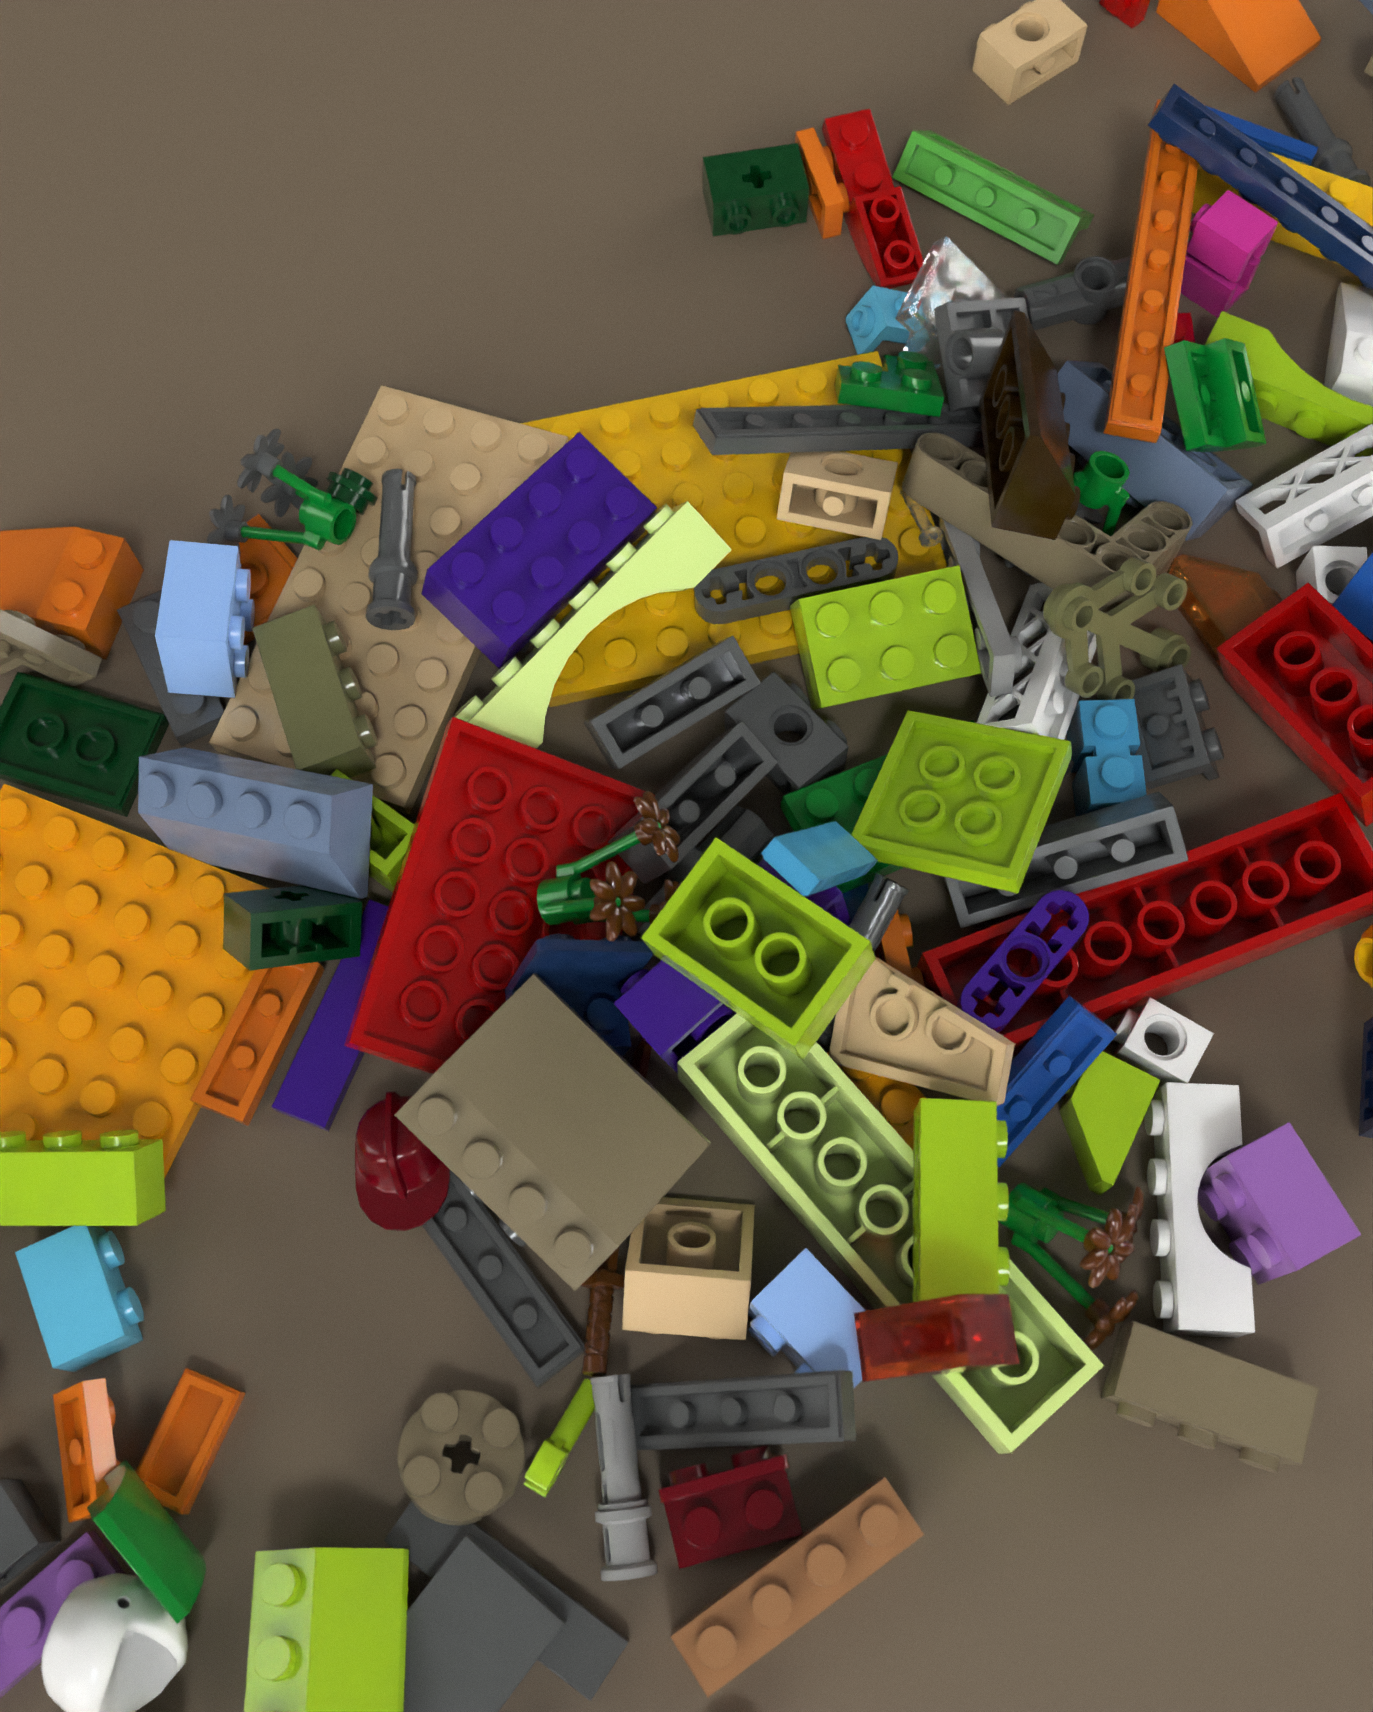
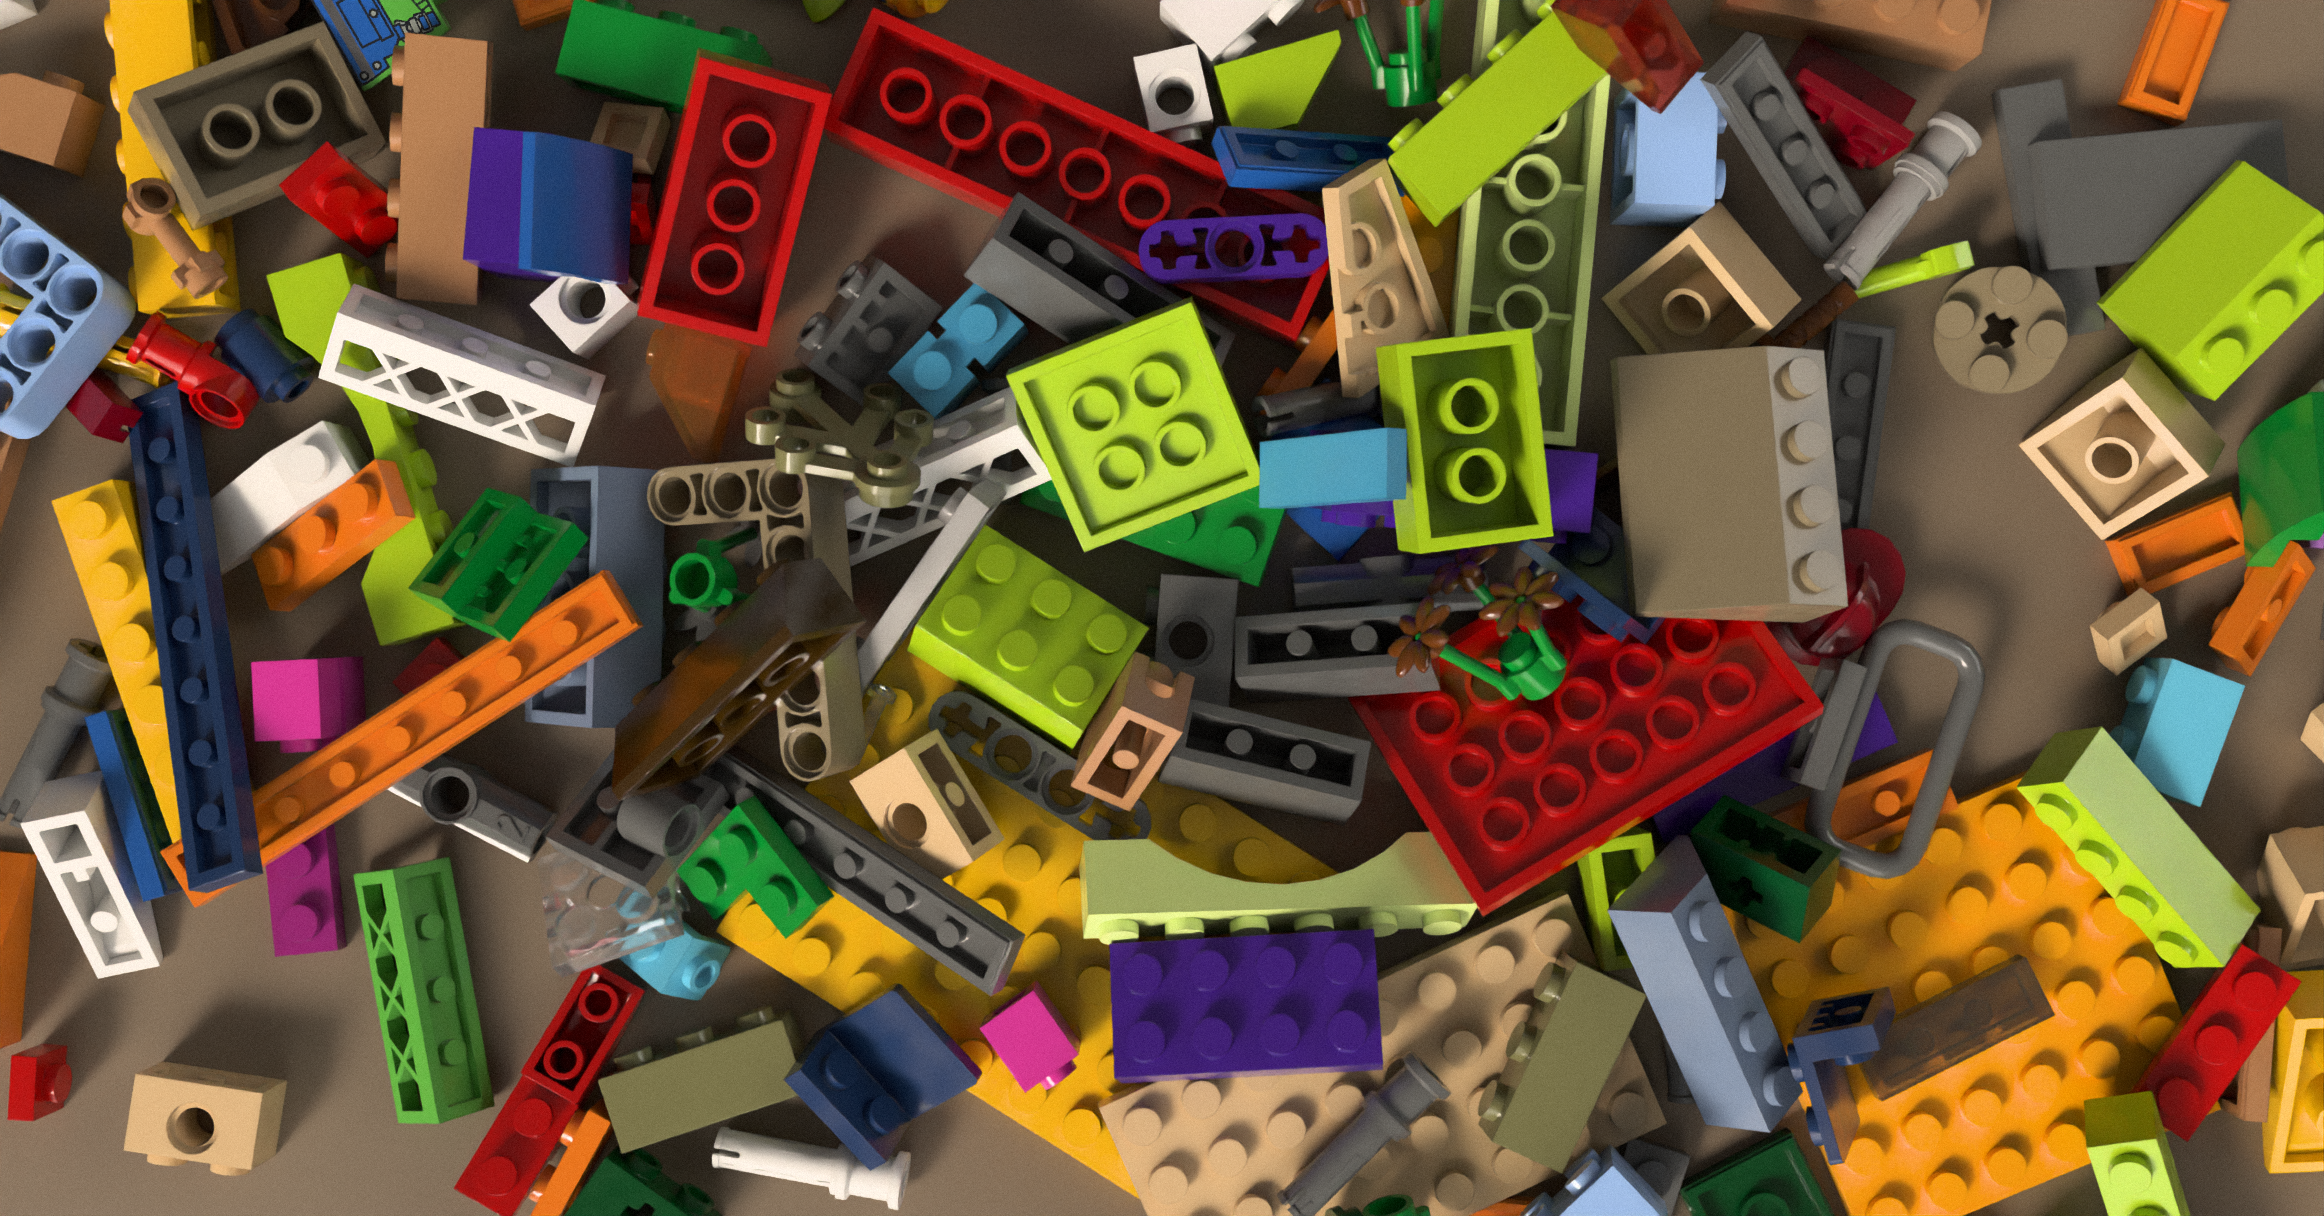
camera: 135 degrees left, 20 degrees up
(70, 954) = (1956, 1026): none -> clear smoke tile
(135, 838) = (1829, 1037): none -> bracket
(173, 1334) = (2128, 630): none -> tan plate
(292, 1467) = (2124, 445): none -> tan slope
(326, 1067) = (1827, 743): none -> dark grey bar
(645, 437) = (1032, 1038): none -> dark pink brick
(676, 300) = (813, 1165): none -> white pin
(710, 348) = (880, 1072): none -> dark blue bracket
(776, 638) = (1143, 720): none -> medium nougat brick
(798, 279) = (701, 1078): none -> olive brick
(1102, 185) = (307, 898): none -> magenta plate
(1243, 90) = (92, 874): none -> white slope
(1313, 341) = (333, 535): none -> orange plate

